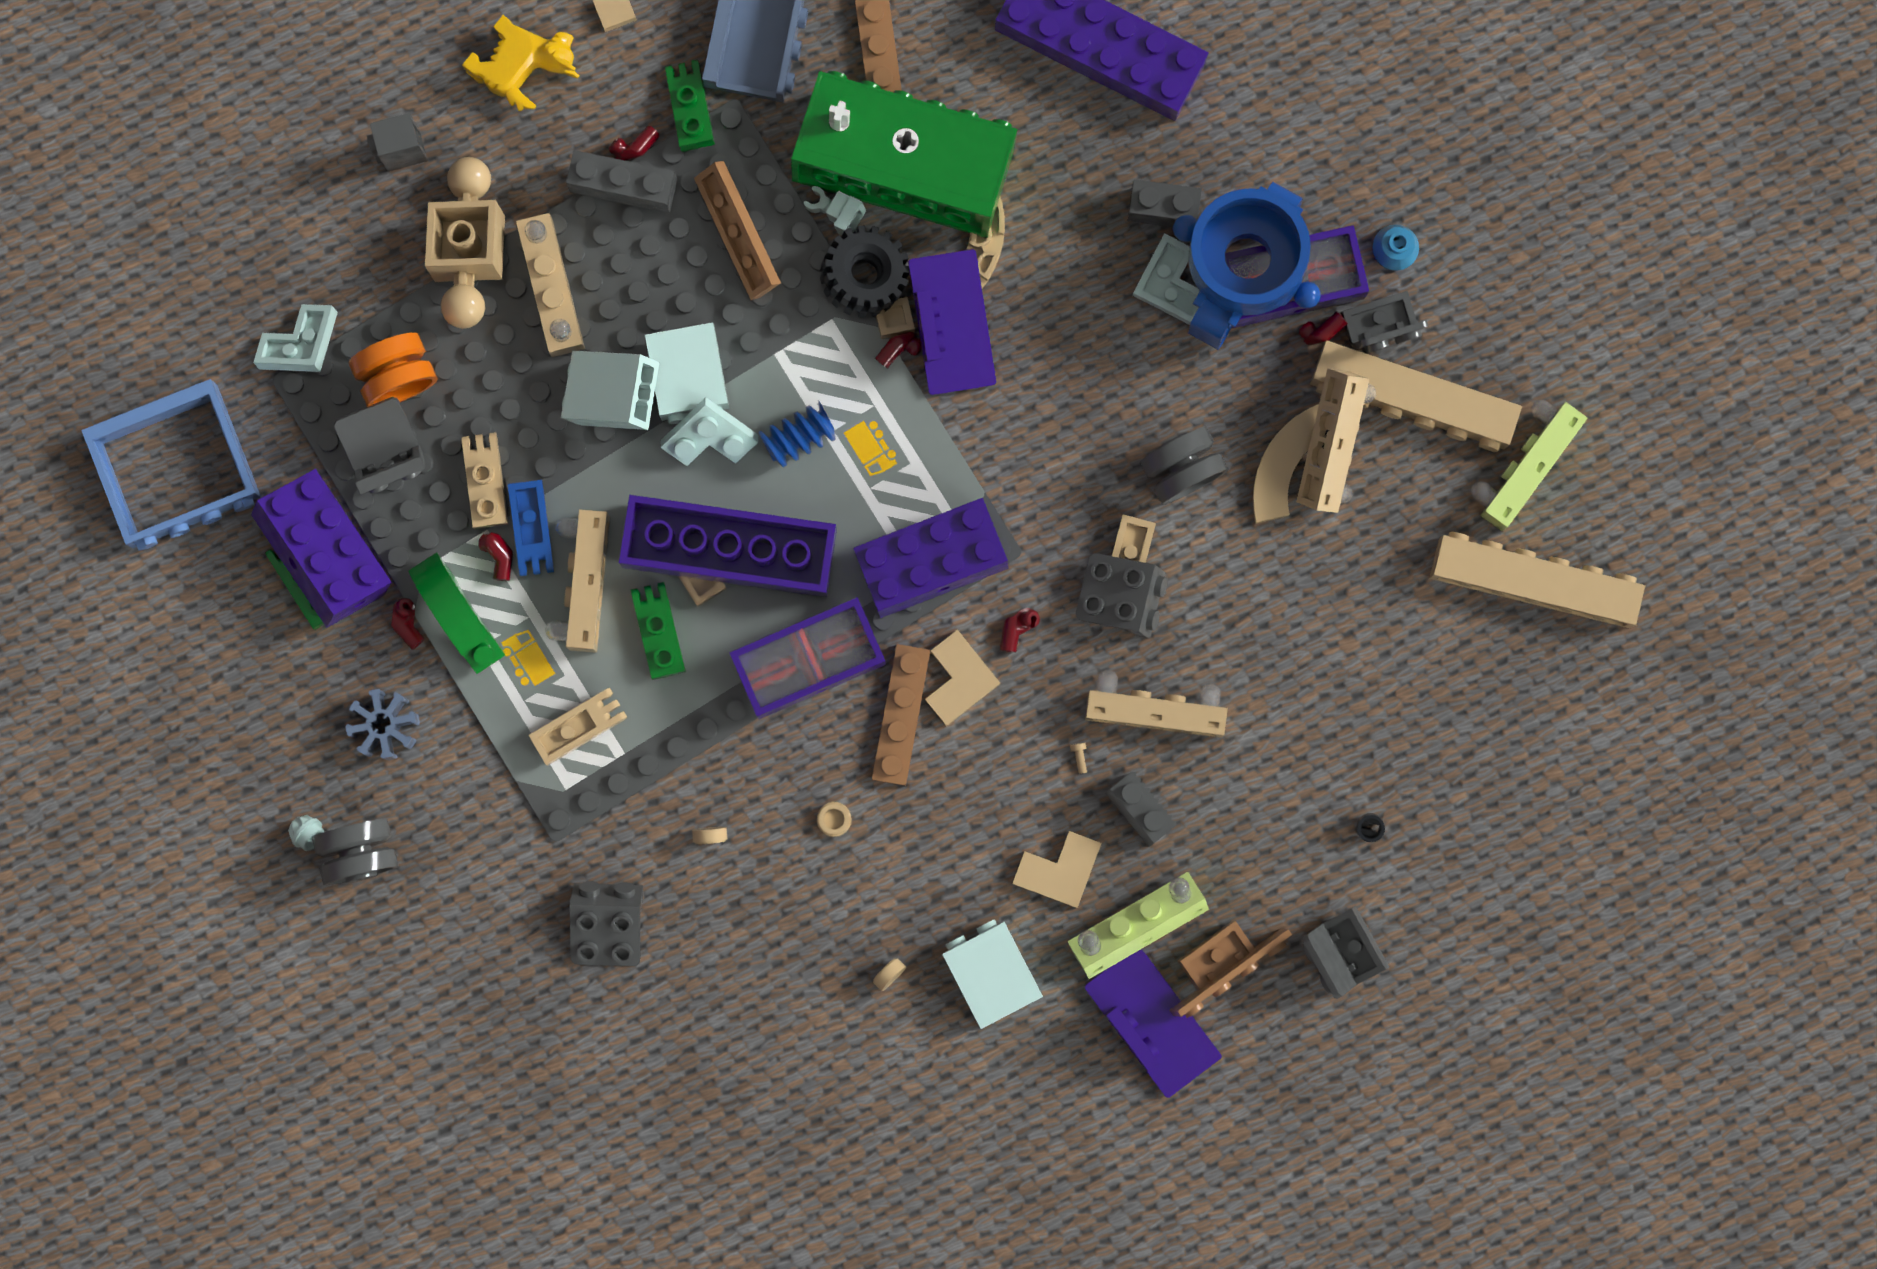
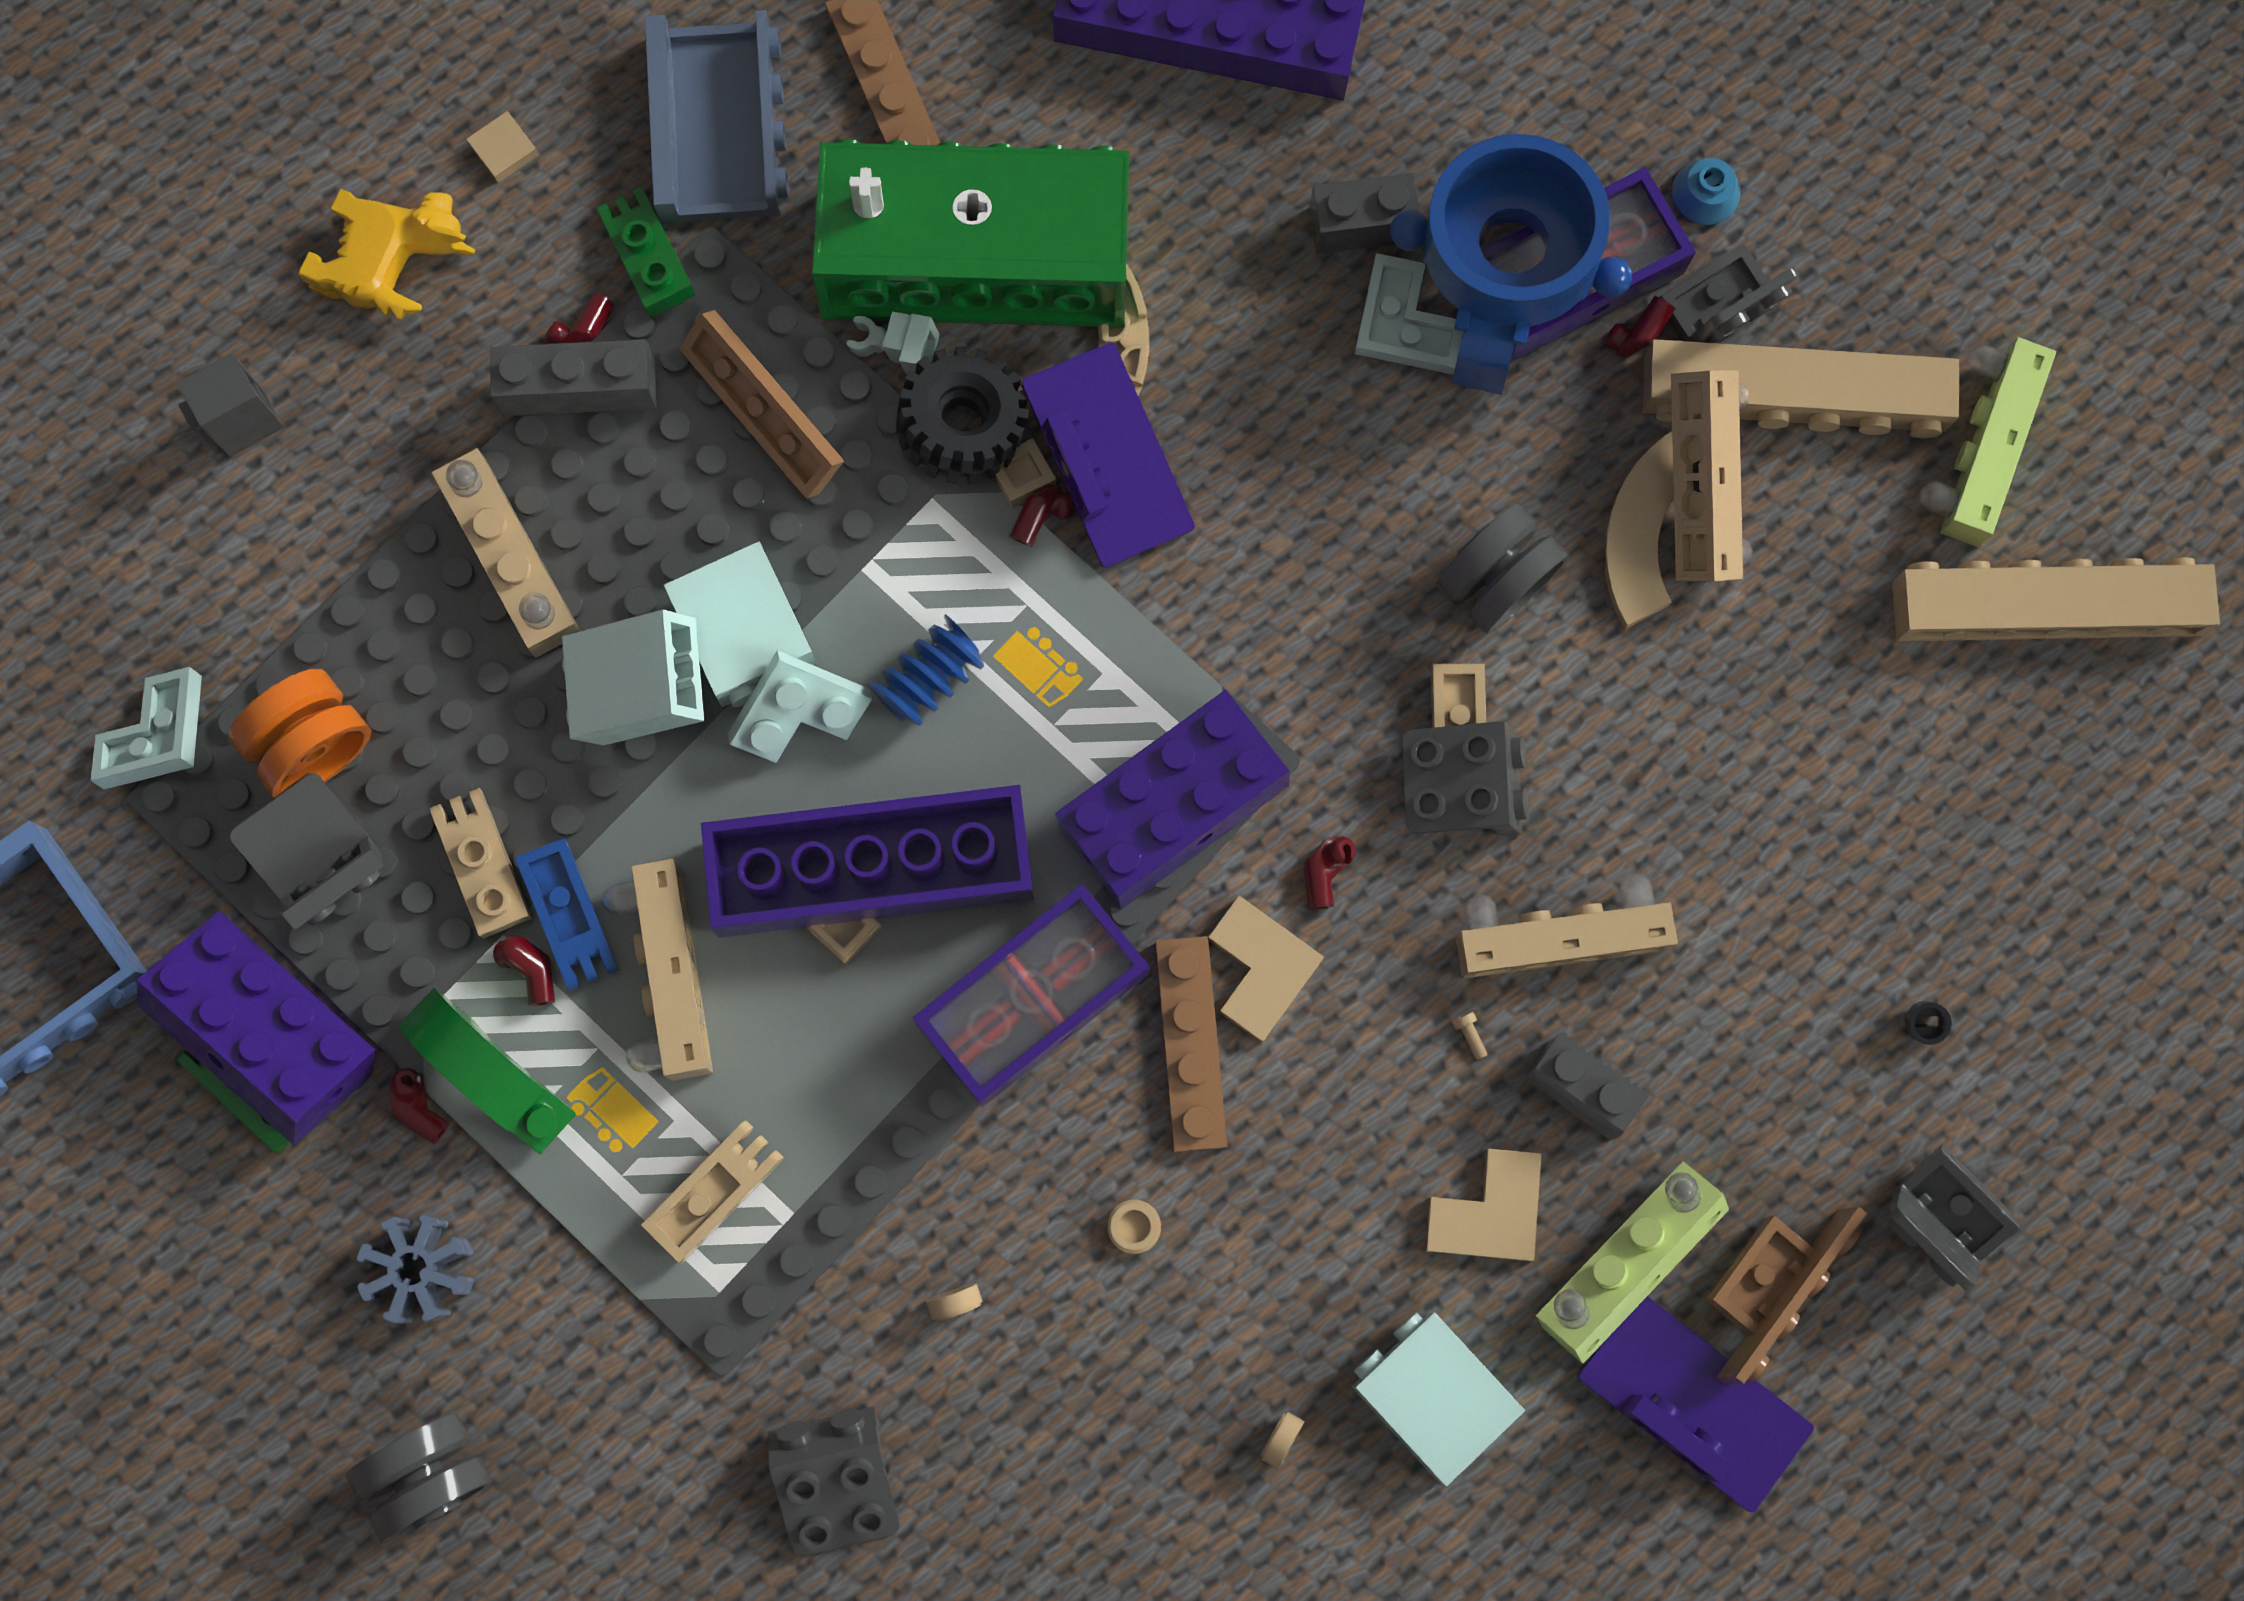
camera: 15 degrees left, 5 degrees down
(302, 831) = (331, 1463): light aqua plate -> none
(465, 241) = (364, 522): tan brick -> none
(658, 632) = (798, 1019): green hinge -> none

